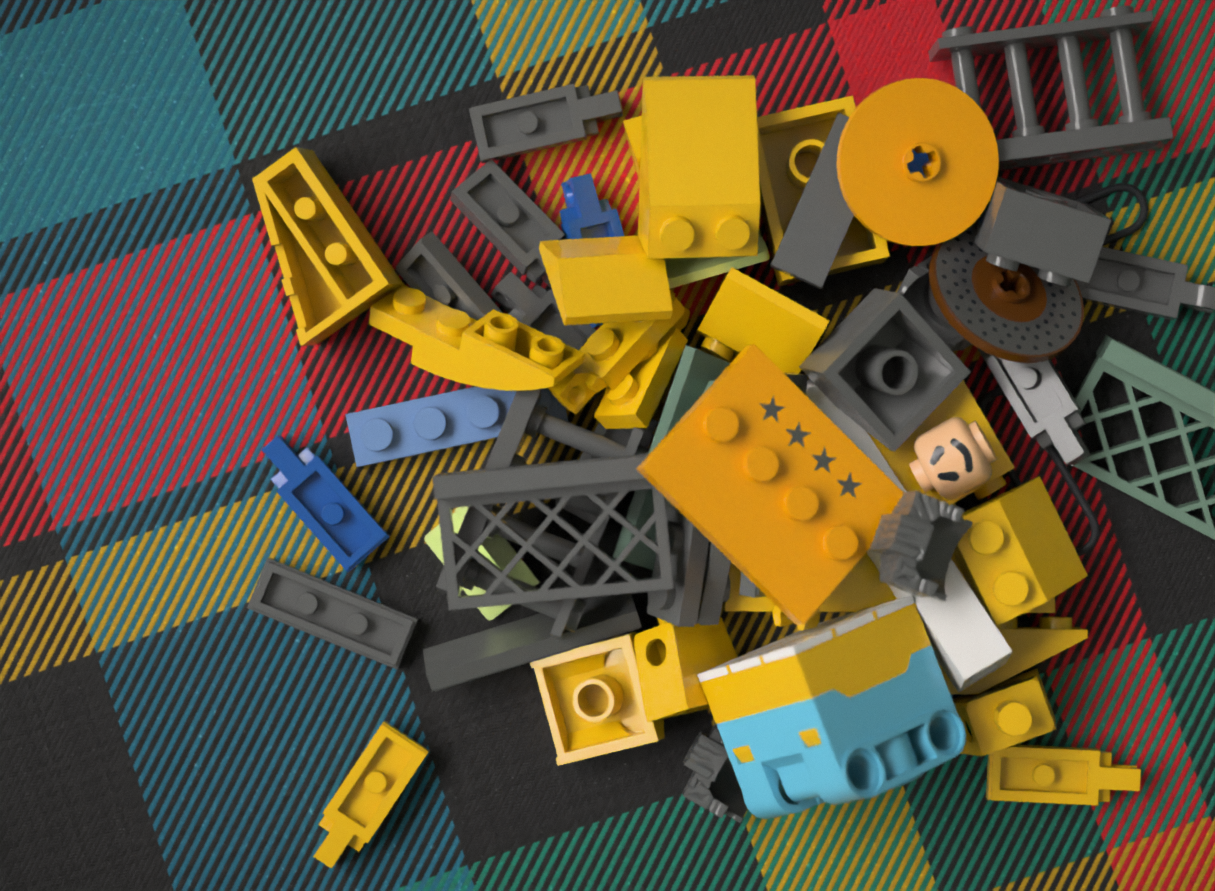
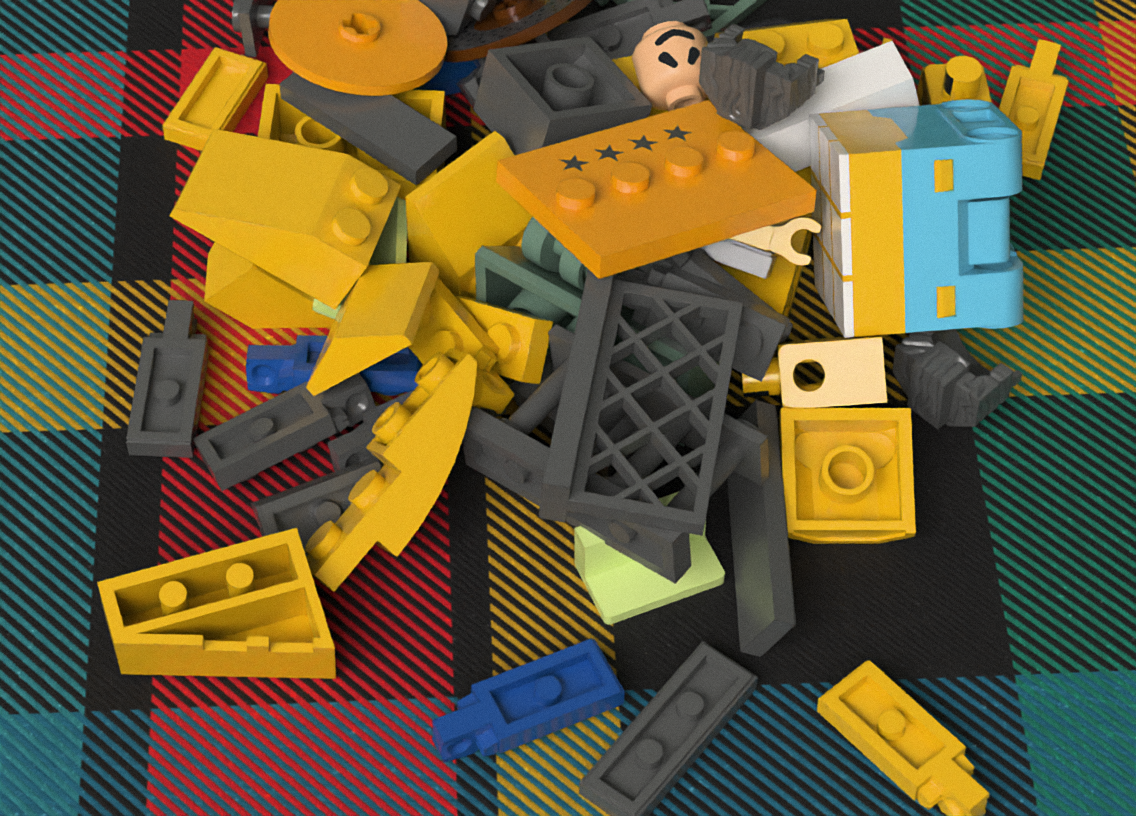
camera: 80 degrees left, 35 degrees down
(434, 423) = (473, 572): medium blue plate -> none
(870, 43) = (215, 98): none -> yellow tile

